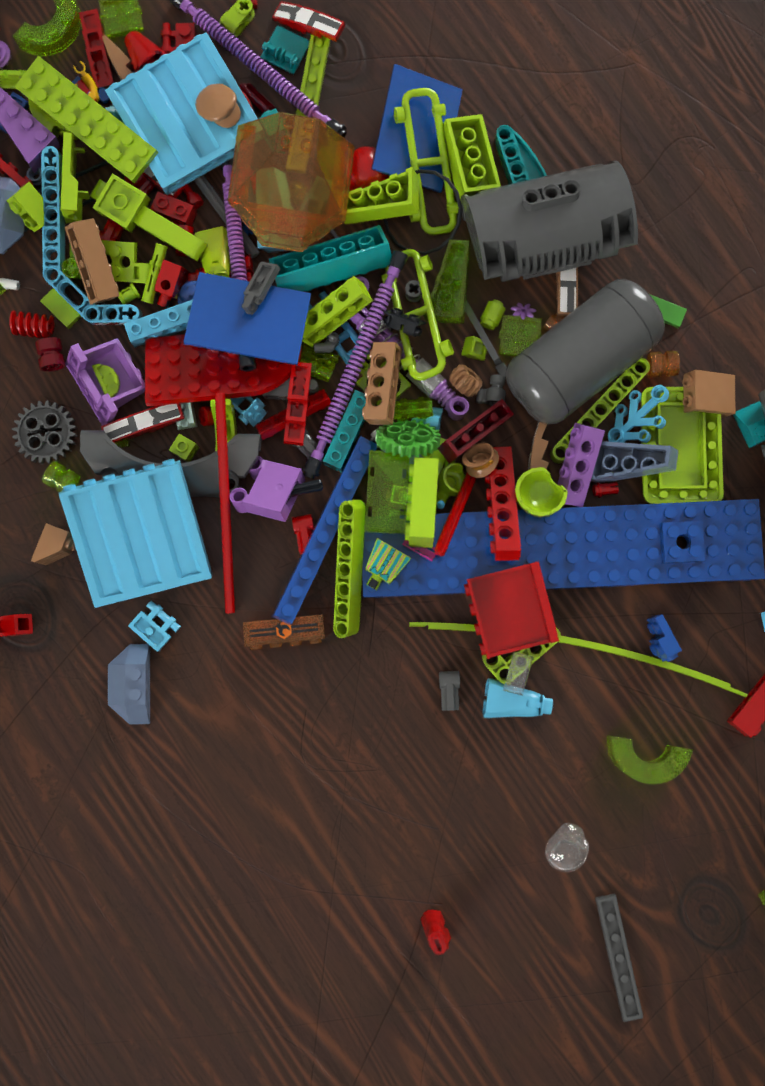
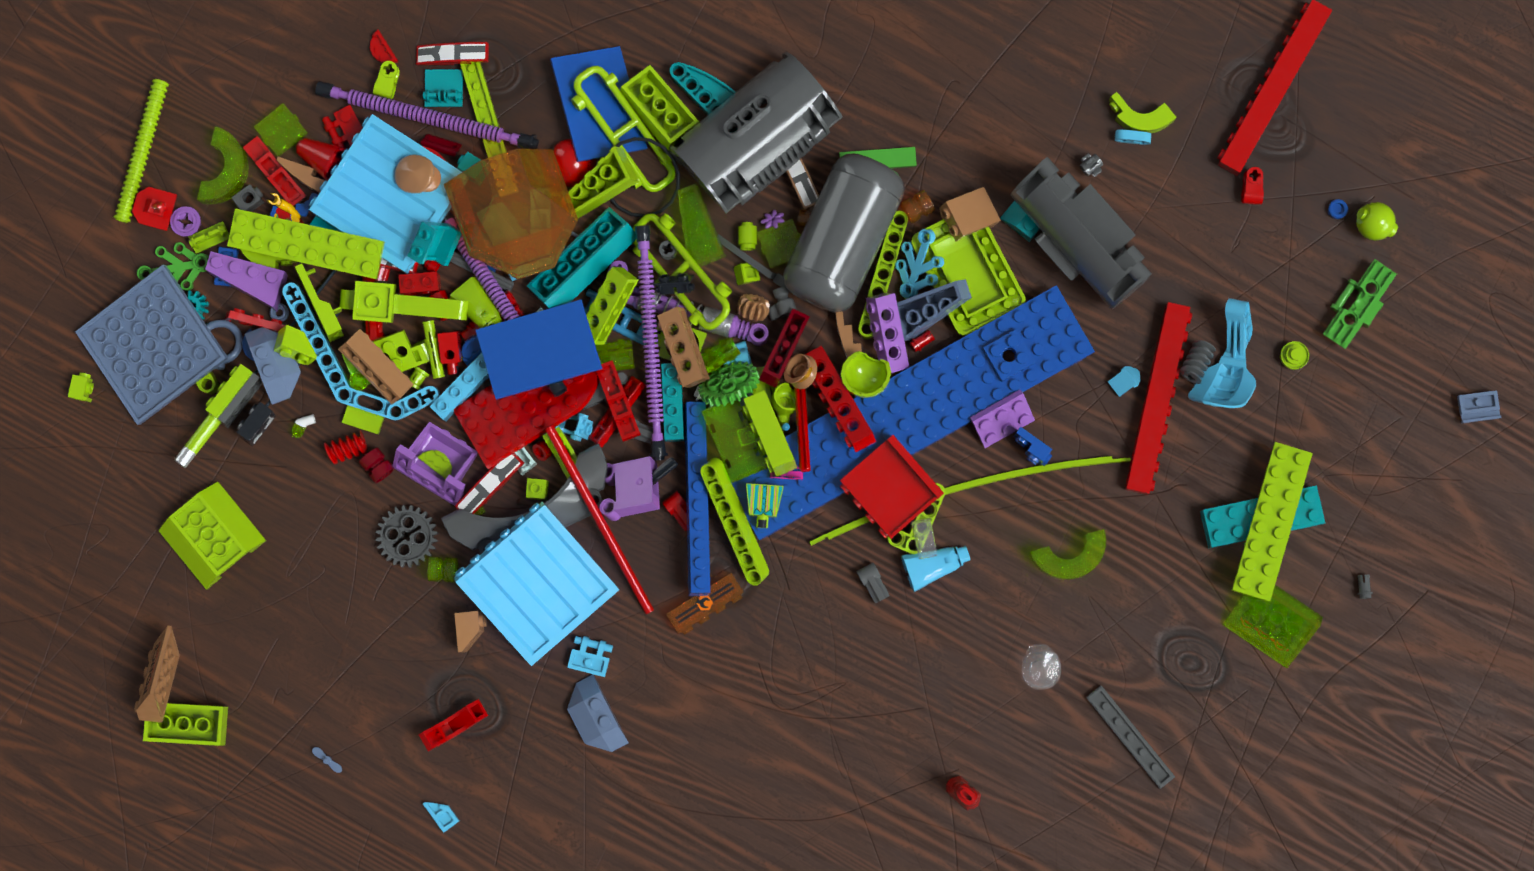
camera: 20 degrees left, 0 degrees up
(56, 55) = (240, 198): none -> dark grey brick
(202, 176) = (434, 243): none -> teal panel
(259, 286) = (535, 316): dark grey hinge -> none
(329, 345) = (618, 335): dark grey arm -> none
(646, 598) = (1002, 418): none -> medium lavender plate

